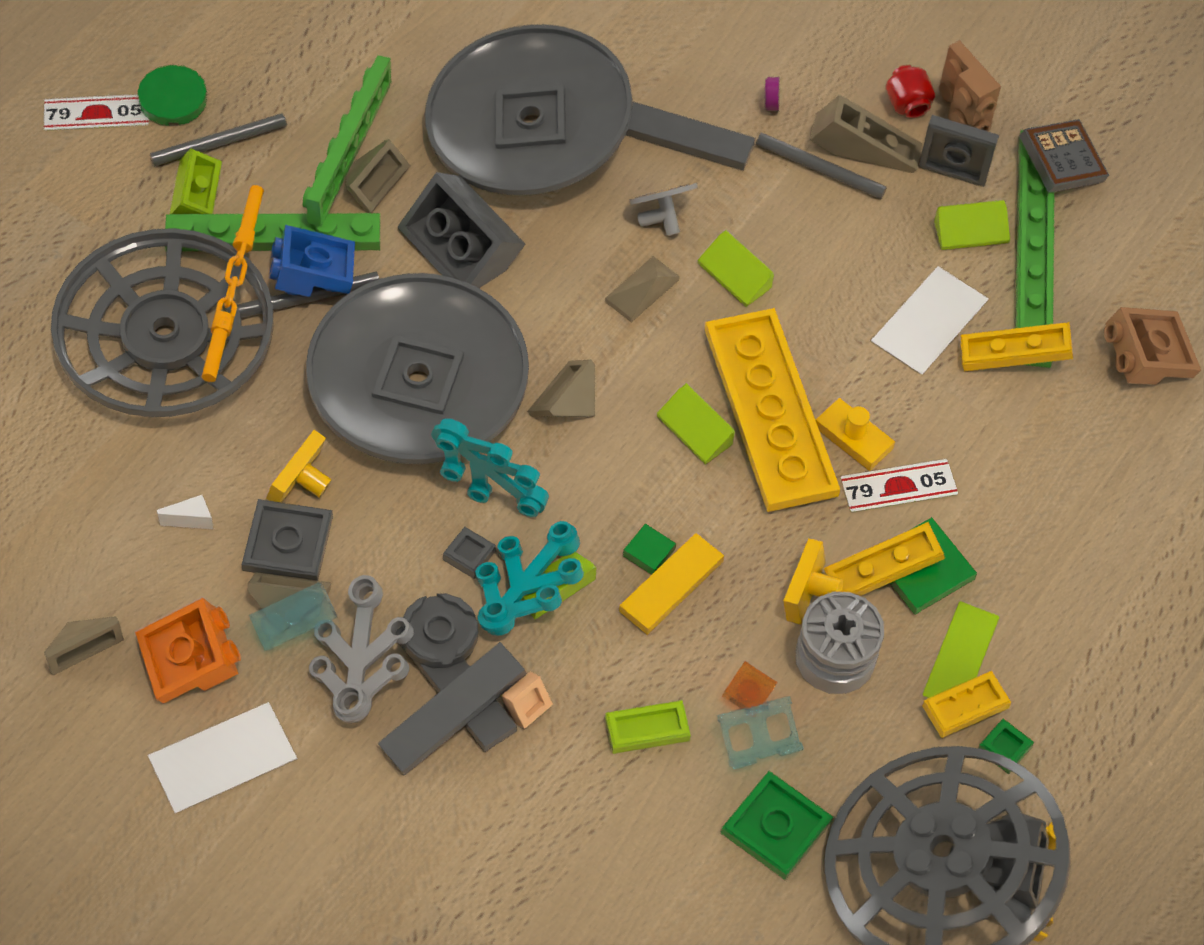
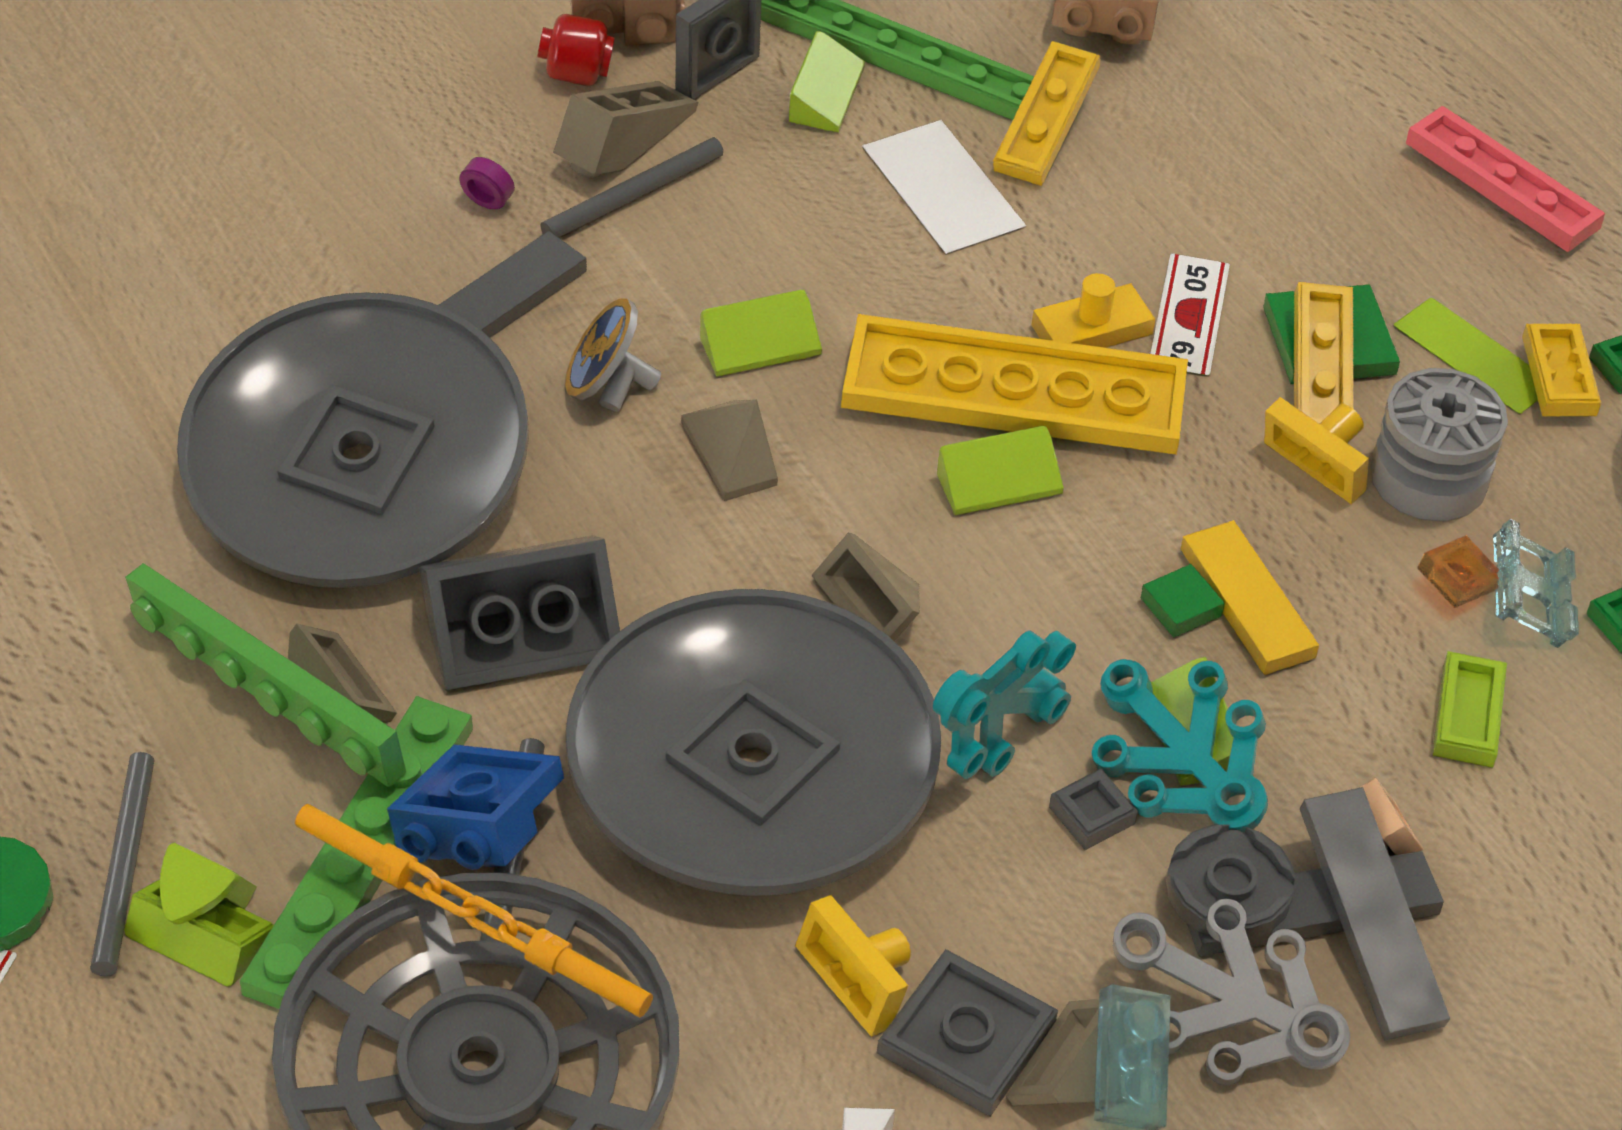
camera: 65 degrees left, 10 degrees down
(211, 170) = (197, 884): none -> lime tile
(1131, 626) = (1505, 178): none -> coral plate

